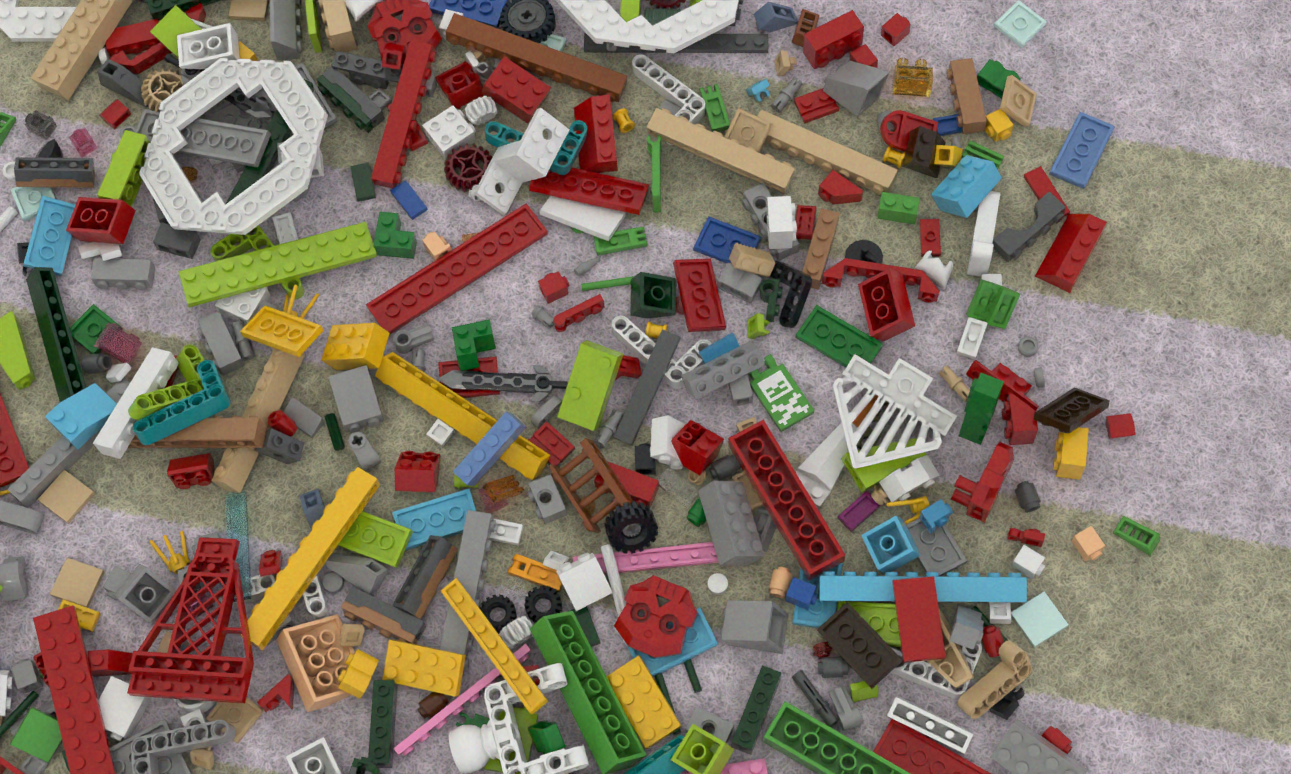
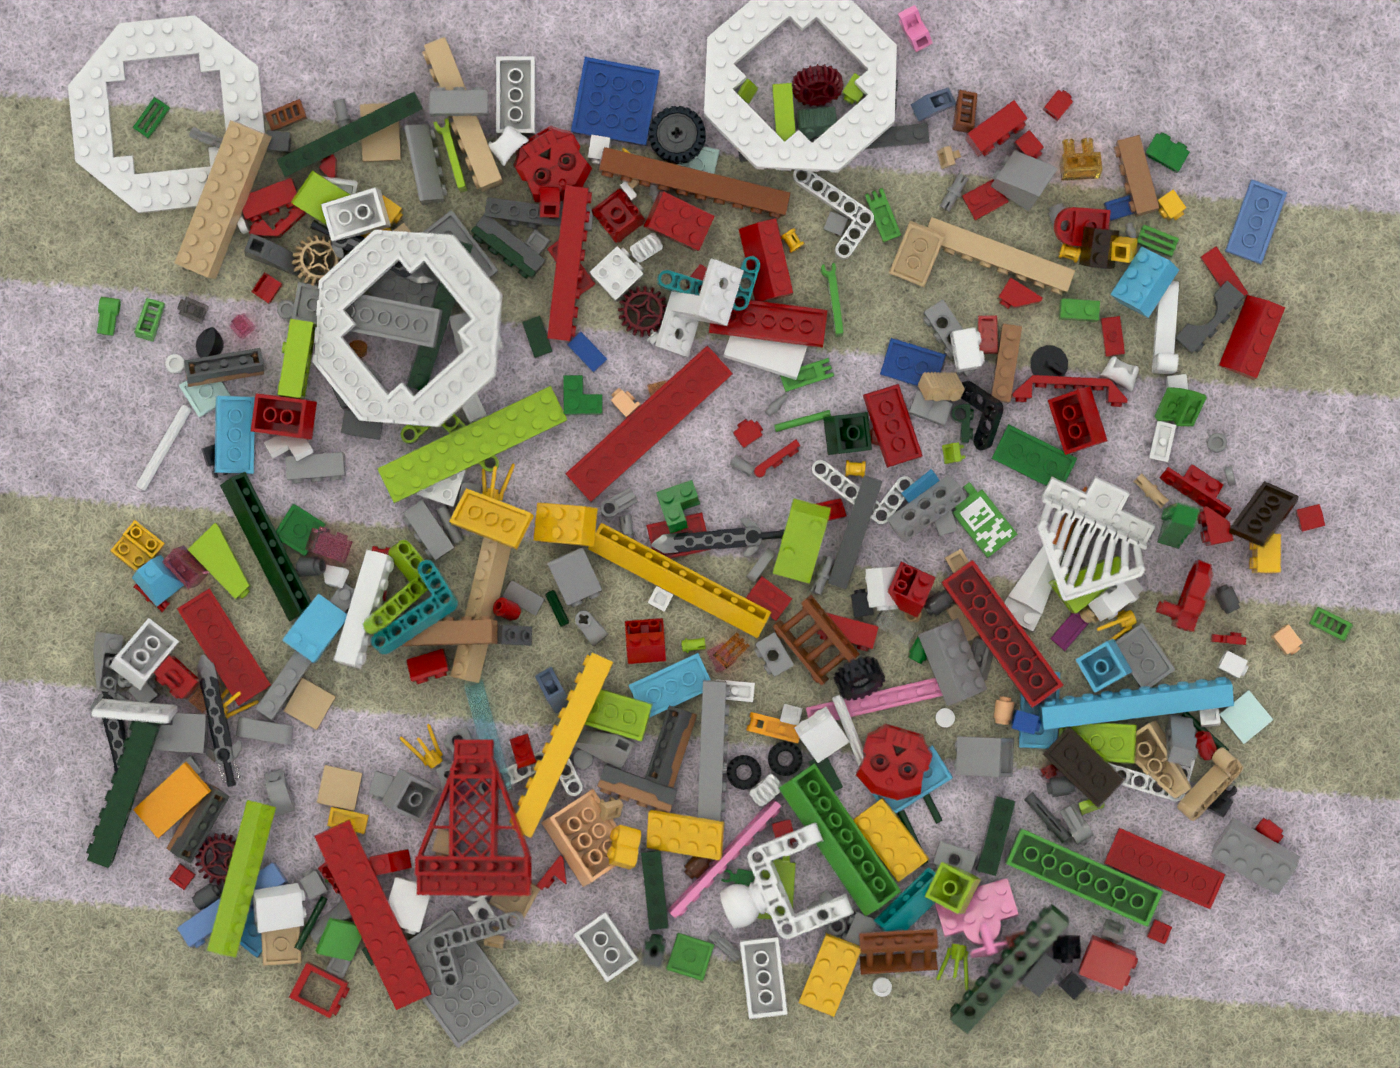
camera: 10 degrees left, 20 degrees up
(484, 70) = (647, 197): light grey pin -> none
(489, 449) = (715, 619): medium blue brick -> none
(494, 646) = (750, 812): yellow tile -> none
(546, 736) = (808, 887): green brick -> none
(721, 150) = (895, 270): tan brick -> none
(757, 88) = (924, 188): medium azure tile -> none
(918, 619) = (1136, 739): red tile -> none
(930, 724) = (1154, 831): white brick -> none
(935, 515) = (1143, 632): dark azure brick -> none
(1018, 101) = (1189, 177): tan tile -> none
(1020, 24) = (1184, 82): light aqua tile -> none

